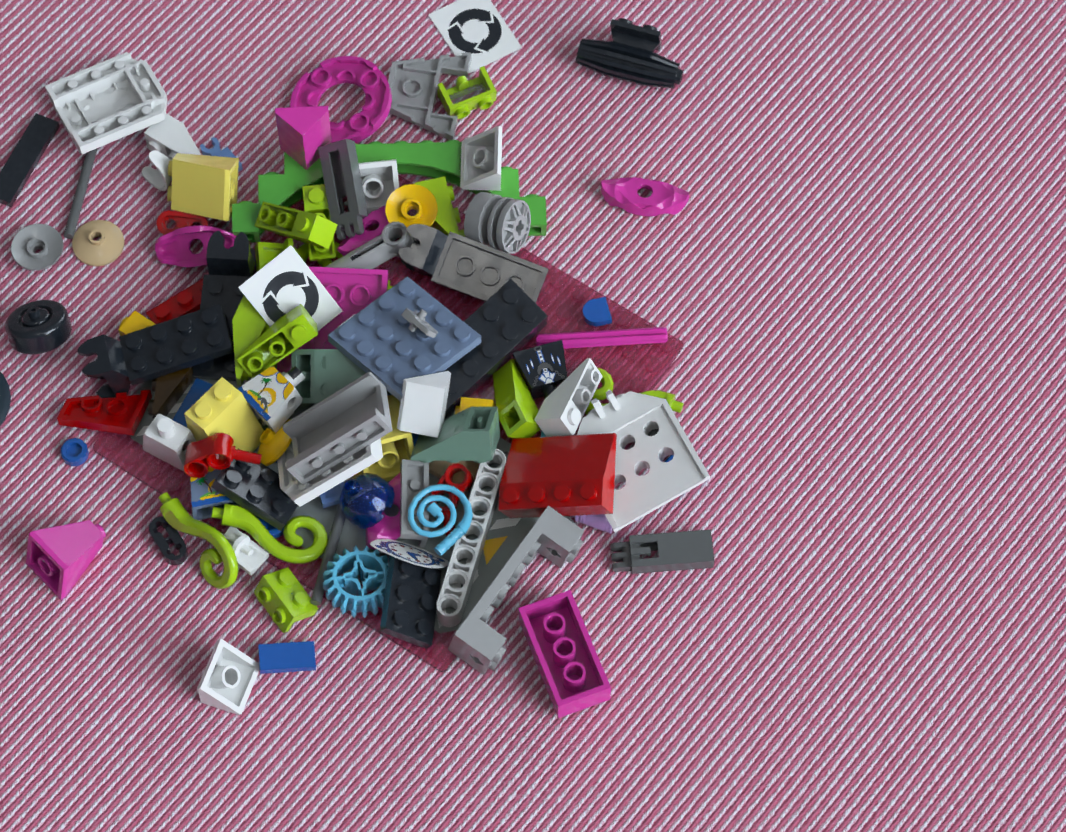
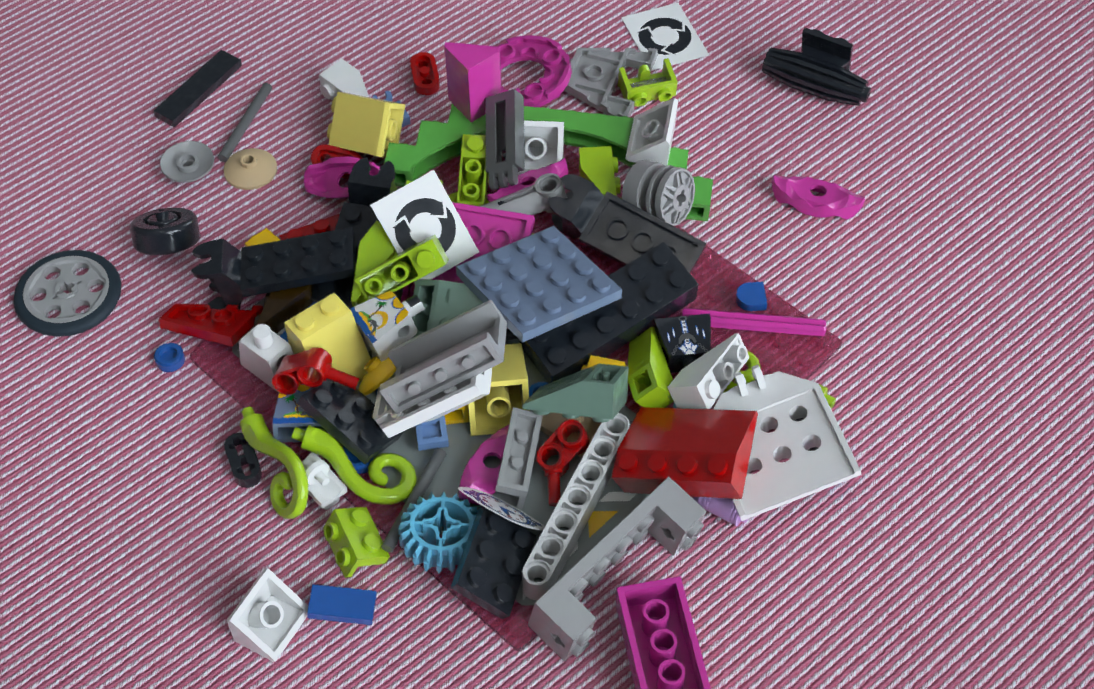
camera: 10 degrees right, 10 degrees down
(63, 553) = (125, 454): dark pink slope -> none
(108, 101) = (291, 45): white wedge -> none
(156, 178) = (319, 117): white helmet -> none
(246, 114) = (424, 73): none -> red plate
(296, 224) = (451, 165): lime slope -> none
(365, 499) = (464, 443): clear blue cylinder -> none
(408, 198) = (572, 160): yellow dish -> none
(417, 319) = (555, 262): light grey piece -> none
(424, 404) = (547, 348): white slope -> none
(435, 511) = (541, 467): medium azure piece -> none
(675, 550) = (808, 555): dark grey hinge -> none

